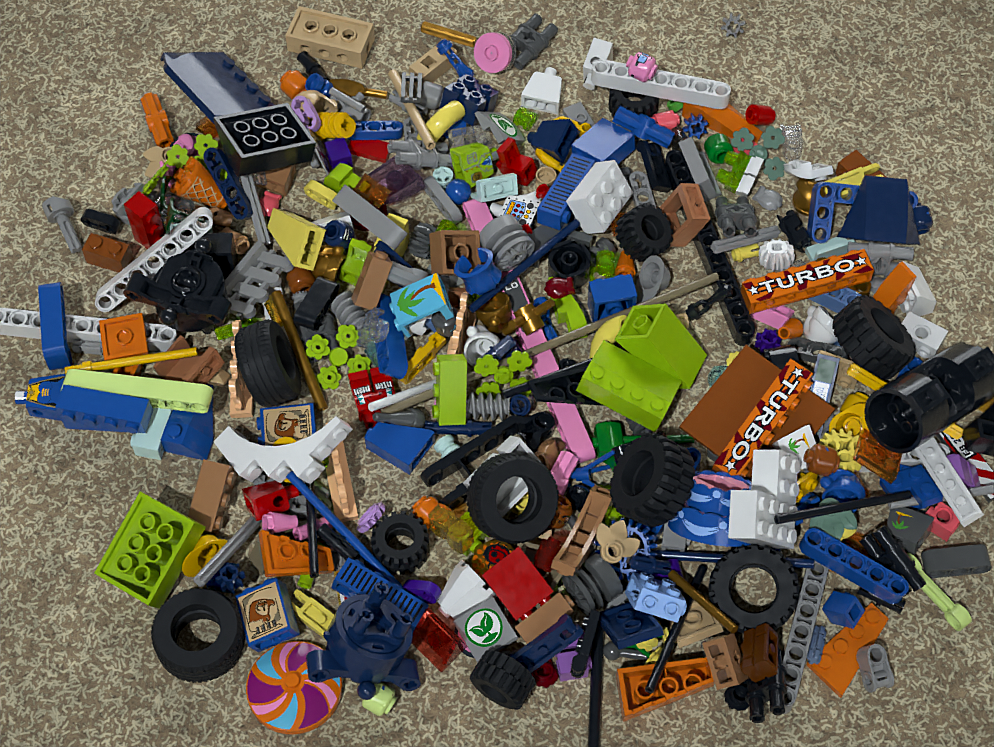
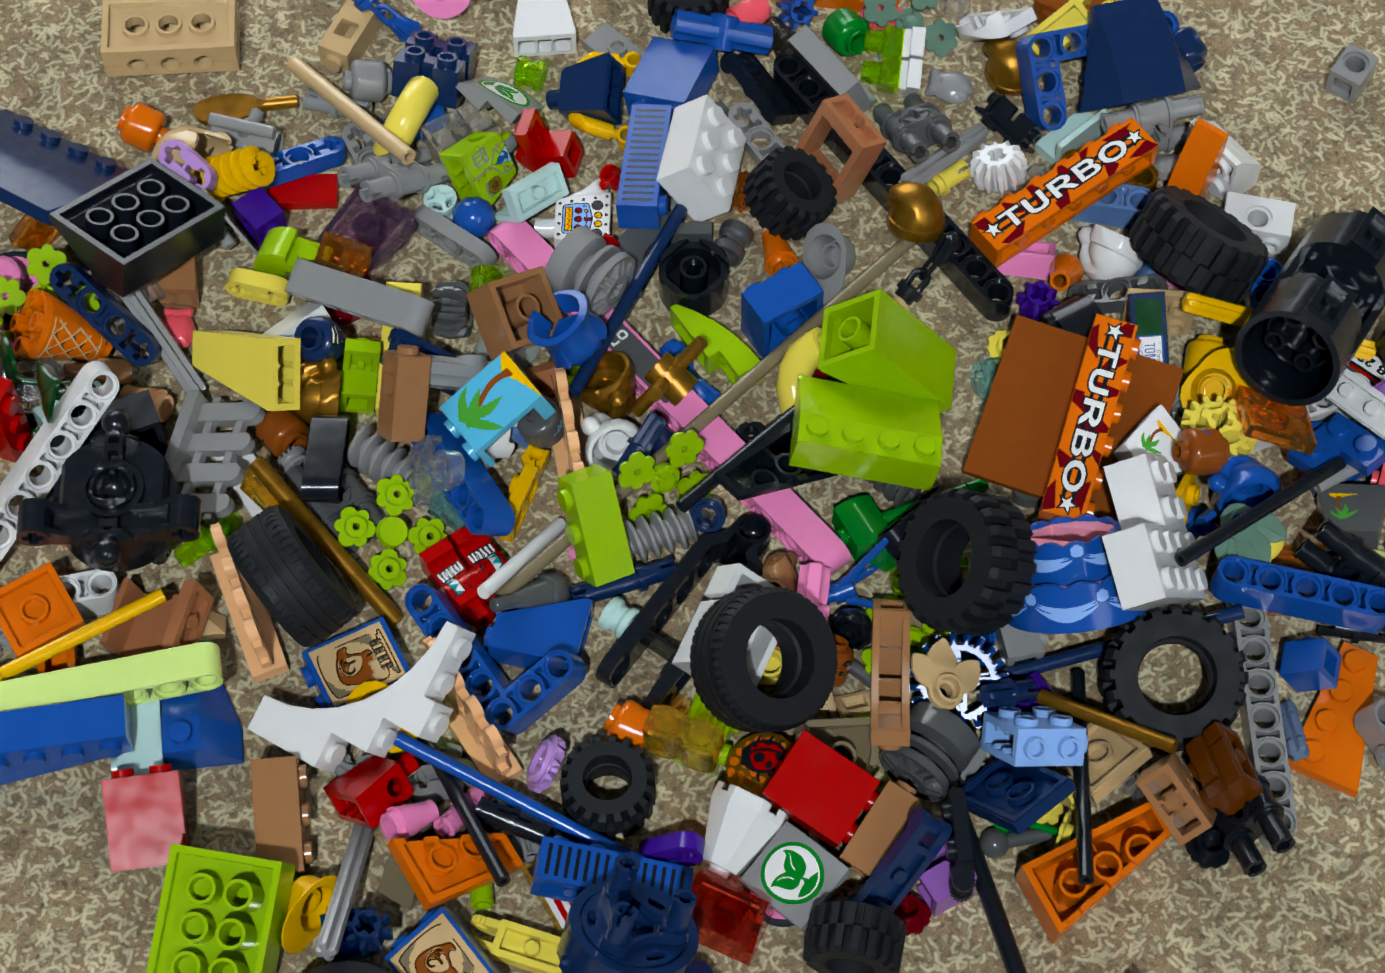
camera: 20 degrees left, 0 degrees up
(137, 471) = (144, 816): none -> brick
(310, 65) = (161, 93): black pin -> none
(316, 82) = (180, 112): blue wheel -> none
(357, 450) = (483, 668): none -> blue beam
(412, 79) = (333, 63): tile -> none
(545, 175) = (599, 153): tan wheel -> none
(546, 553) = (850, 727): clear red brick -> none
(559, 287) = (696, 316): dark red animal -> none
(604, 264) = (750, 261): clear neon green leg -> none
(711, 266) = (915, 213): none -> pearl gold piece

